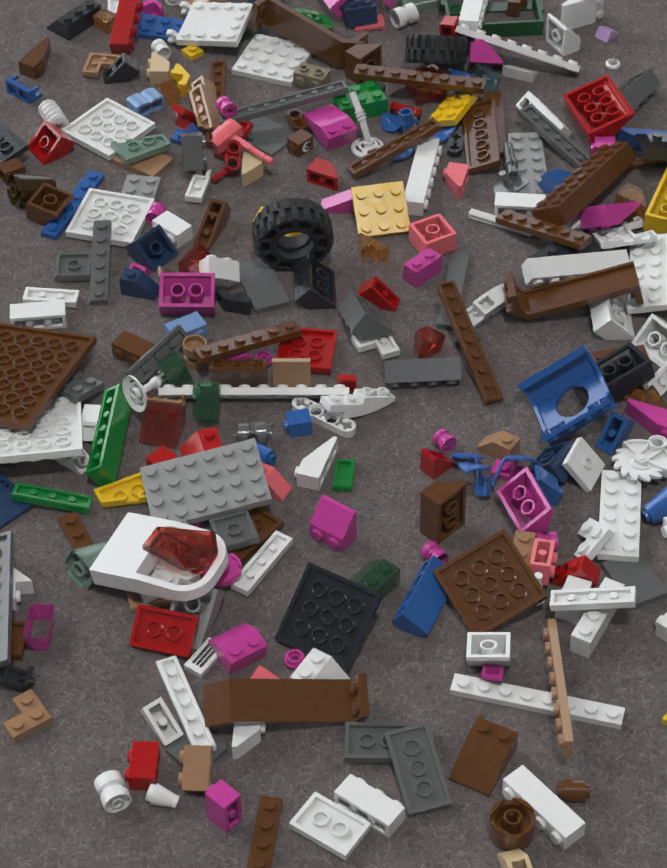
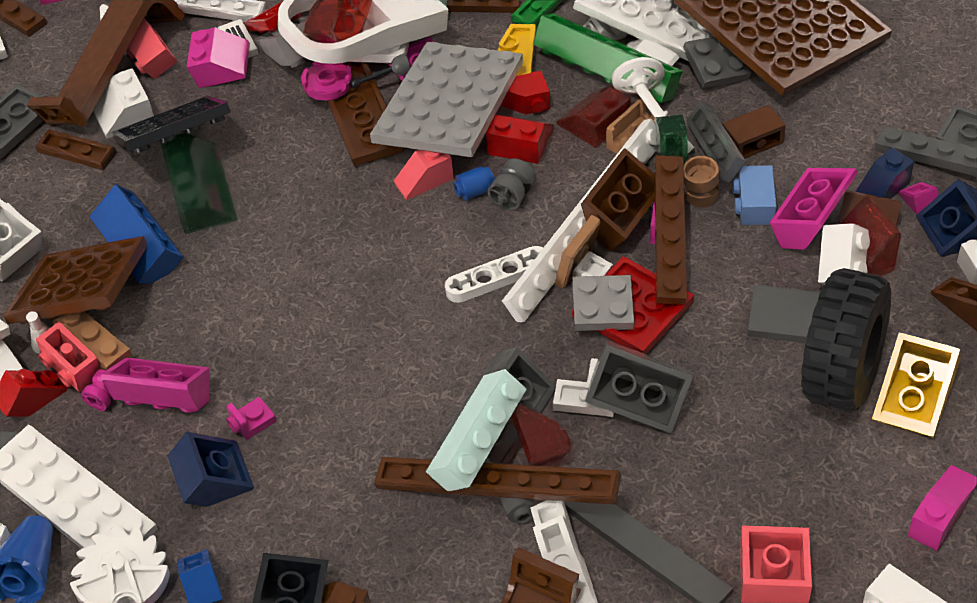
camera: 125 degrees right, 5 degrees up
(36, 294) = (915, 94): white plate -> none
(39, 314) = (882, 69): white brick -> none
(207, 402) = (590, 155): clear green brick -> none
(235, 303) = (796, 256): black slope -> none
(235, 530) = (363, 102): dark grey plate -> none
(262, 562) = (314, 125): white plate -> none
(263, 354) = (642, 254): dark pink plate -> none
(293, 654) = (167, 100): dark pink plate -> none
(298, 423) = (498, 237): blue brick -> none
(314, 284) = (758, 371): black slope -> none
(316, 465) = (409, 221): white slope -> none
(321, 354) = (602, 303): none -> light grey plate
(333, 524) = (303, 197): dark pink slope -> none
(343, 475) = (384, 252): green tile -> none
(348, 380) = (532, 317): red plate -> none
(360, 403) = (485, 305): white slope -> none
(372, 247) = (809, 474): clear orange slope -> none
(377, 692) = (76, 149): none -> reddish brown tile
(379, 294) = (685, 433): red slope -> none
(380, 209) = (883, 522): yellow plate -> none
(422, 267) = (712, 519): dark pink brick -> none
(432, 548) = (184, 272): dark pink wheel -> none
(434, 463) = (320, 343): red slope -> none
(442, 509) = (217, 280): reddish brown slope -> none
(444, 440) = (349, 371): dark pink wheel -> none
(453, 345) = (476, 430): none -> light aqua brick
(483, 482) = (220, 403): blue plant -> none
(500, 445) = (290, 426): medium nougat slope -> none
(548, 484) = (169, 423): blue slope -> none
(551, 383) = (253, 505): blue panel -> none
(583, 464) = (171, 494): white plate -> none
(595, 538) = (46, 431): white plate -> none

